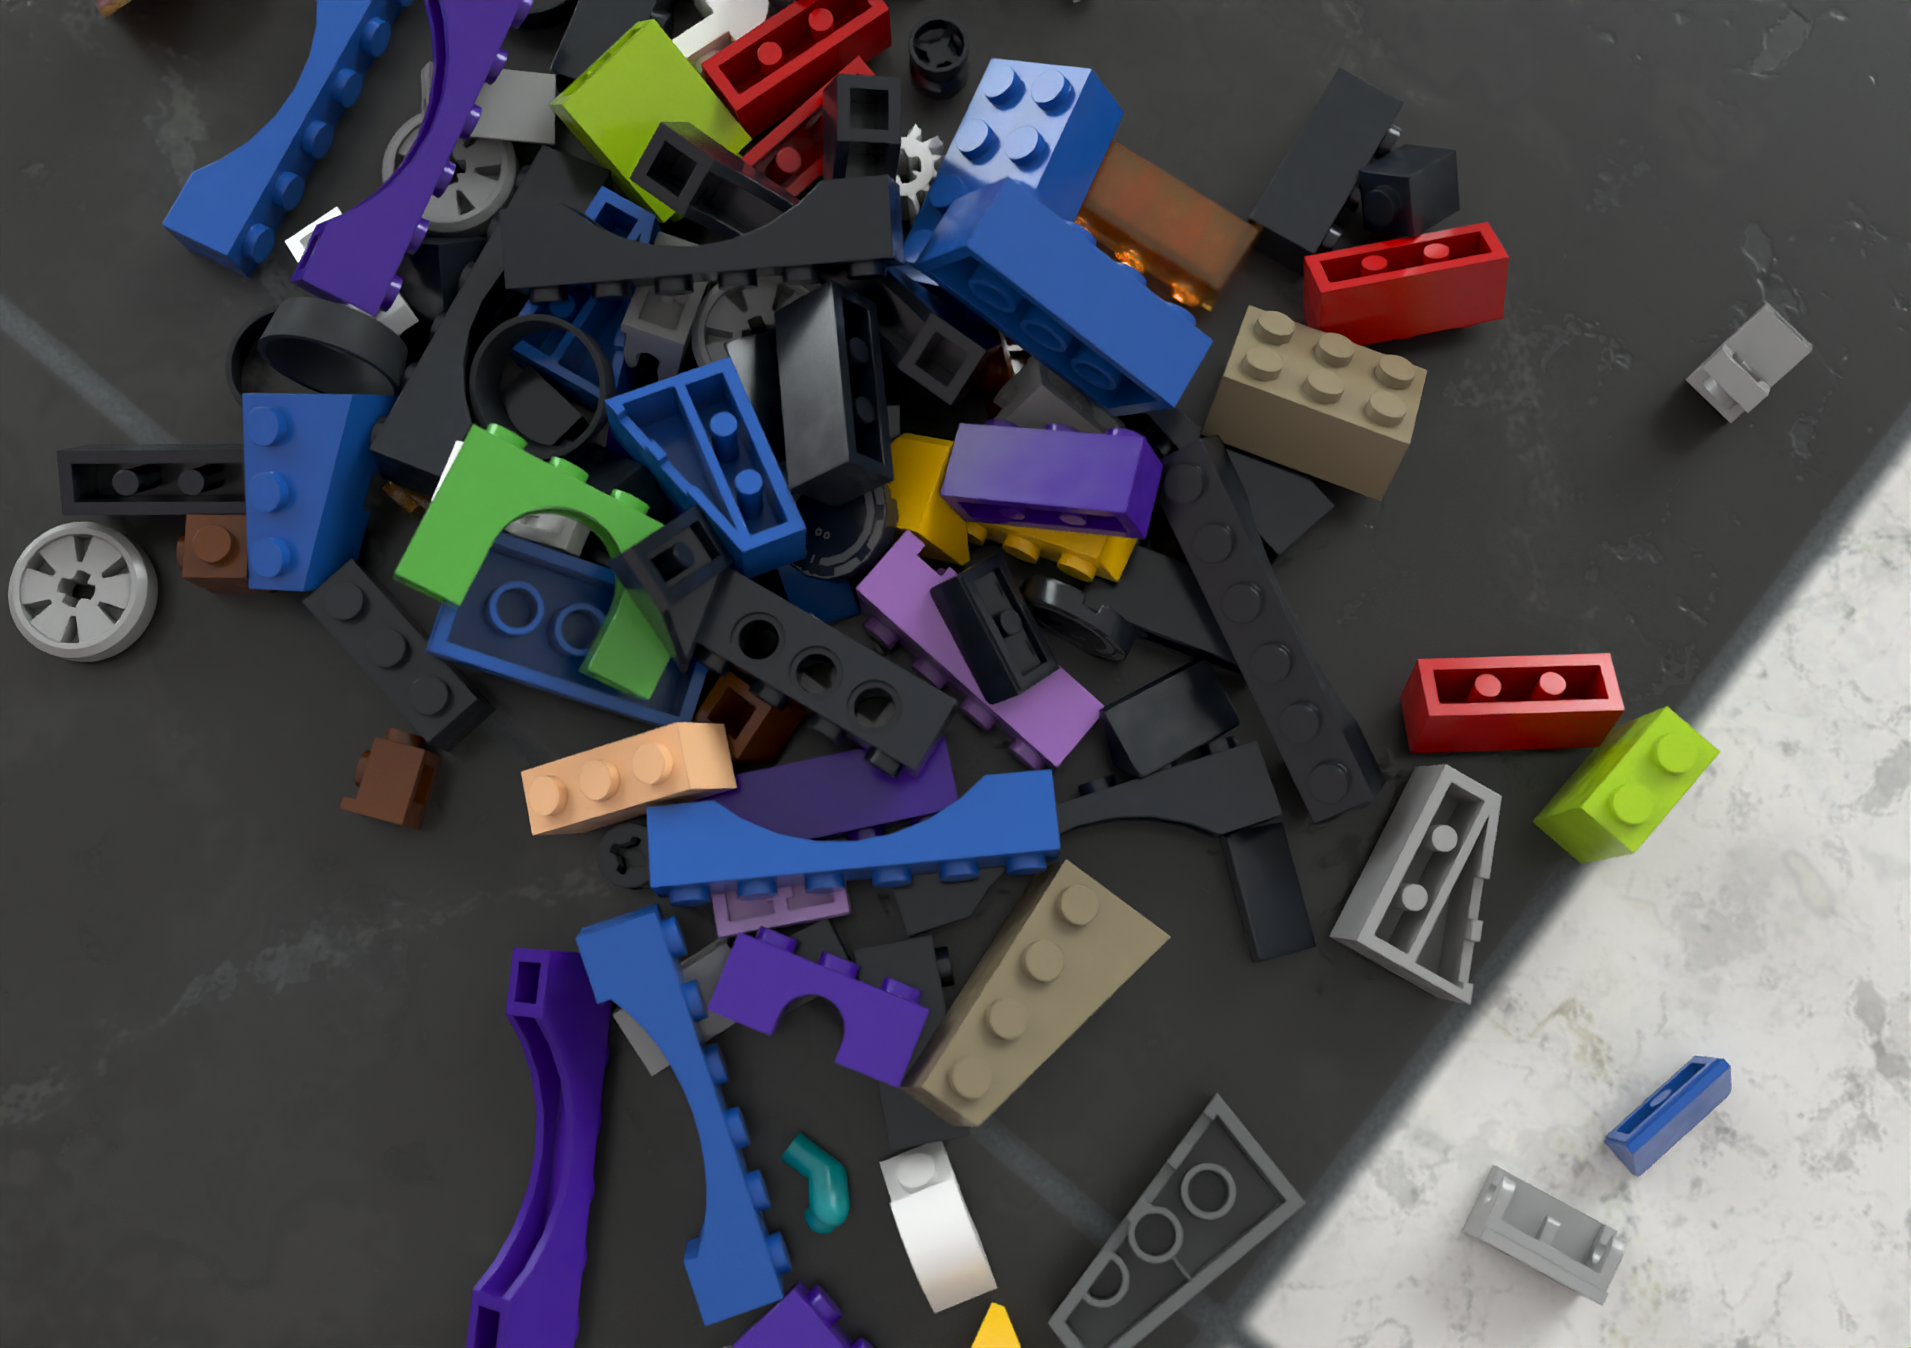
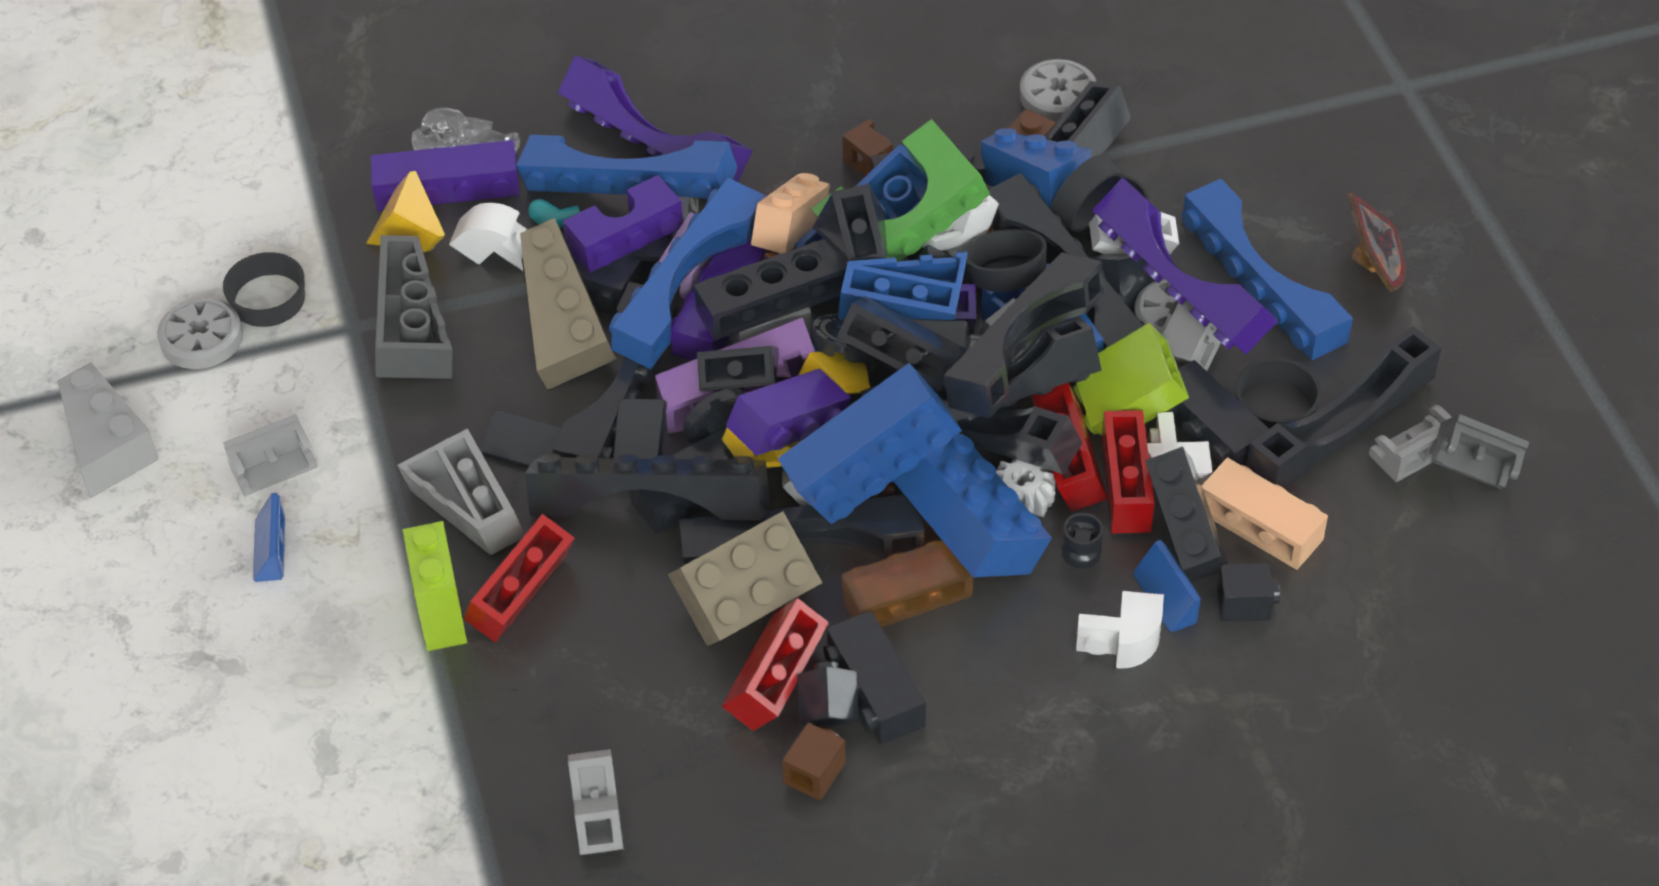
camera: 125 degrees right, 30 degrees down
(1502, 154) = (814, 761): none -> reddish brown brick

